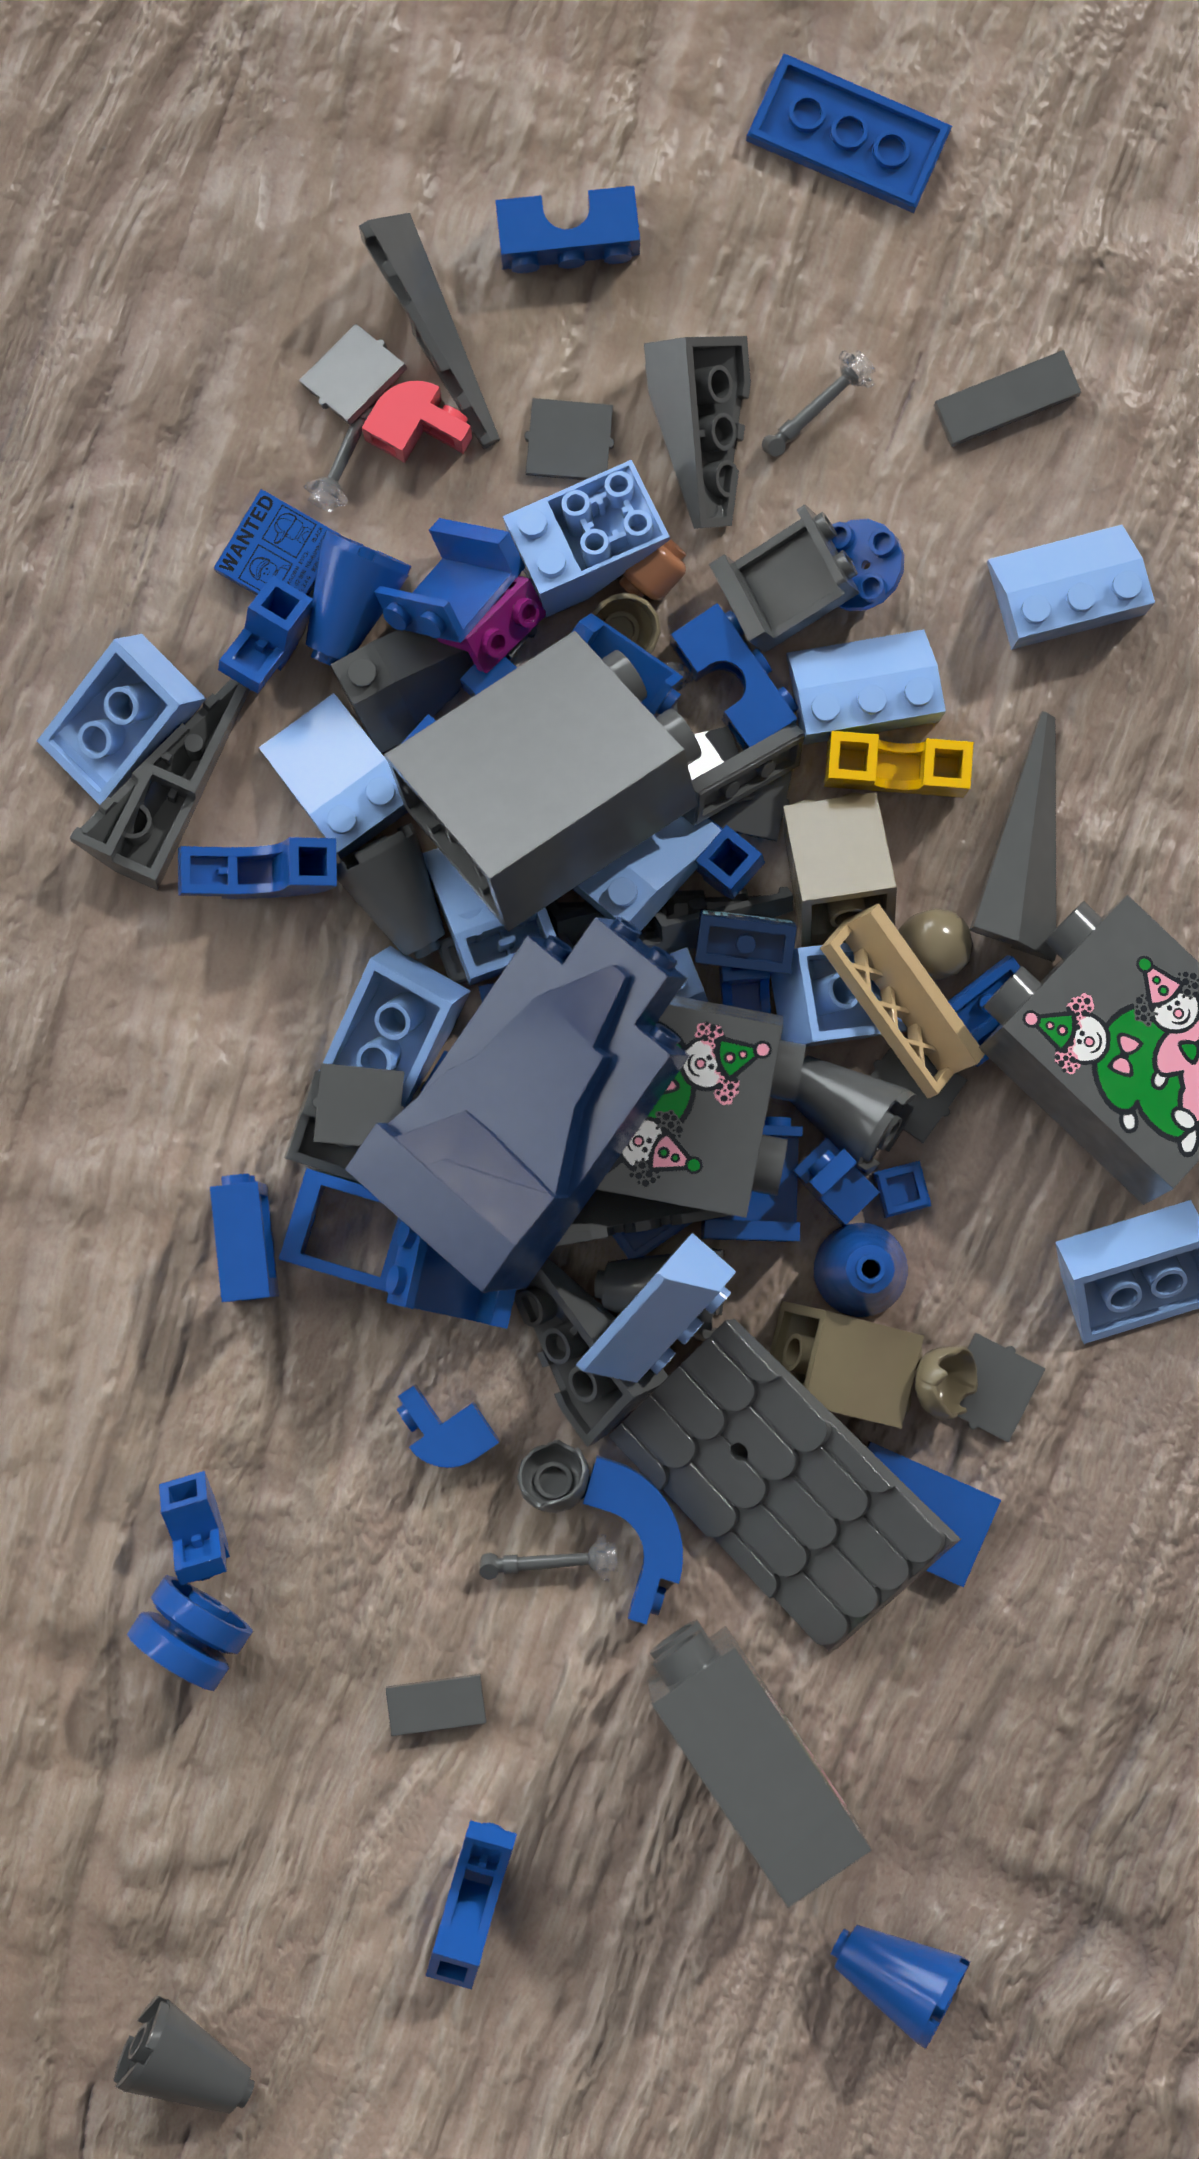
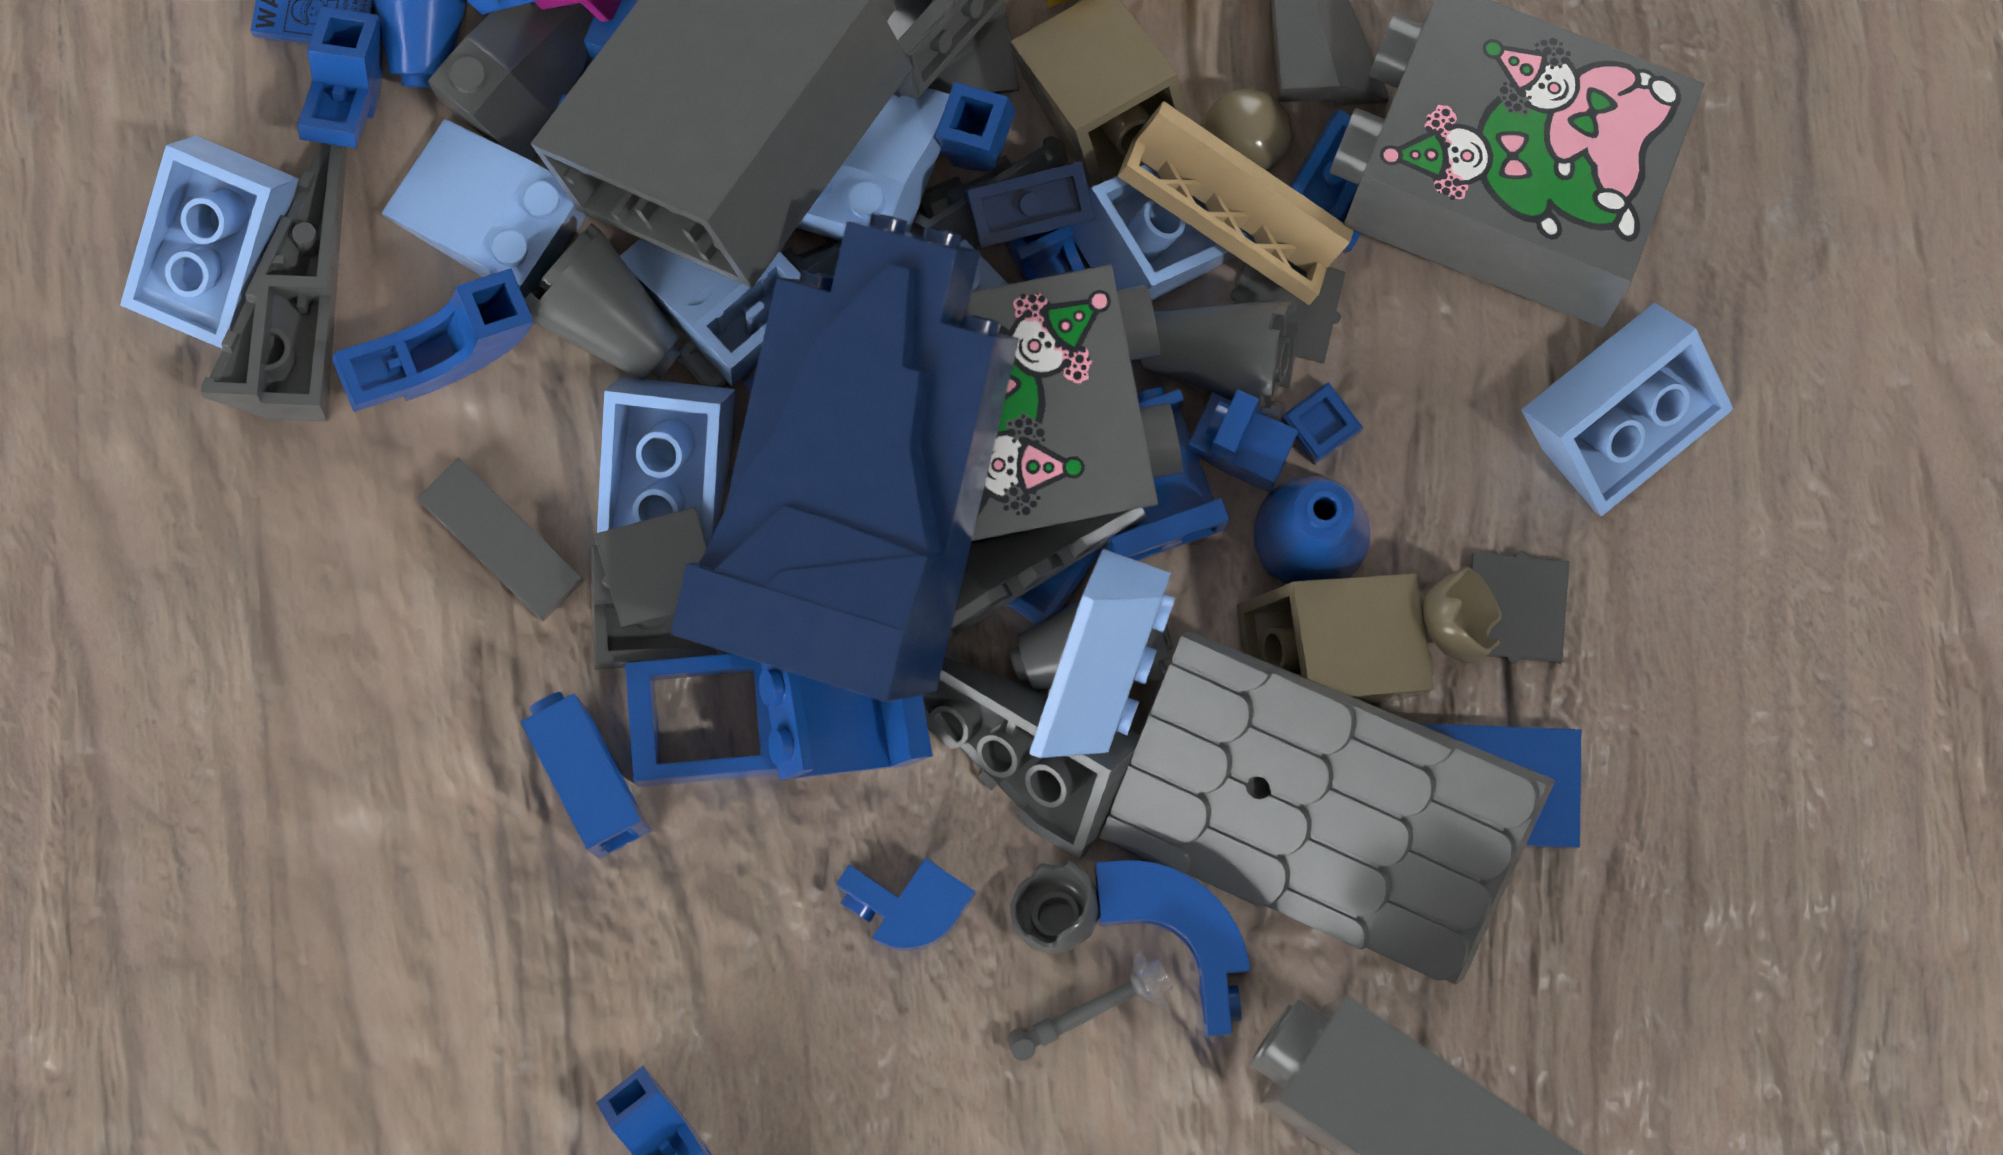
camera: 20 degrees left, 5 degrees down
(251, 1033) = (500, 539): none -> dark grey tile

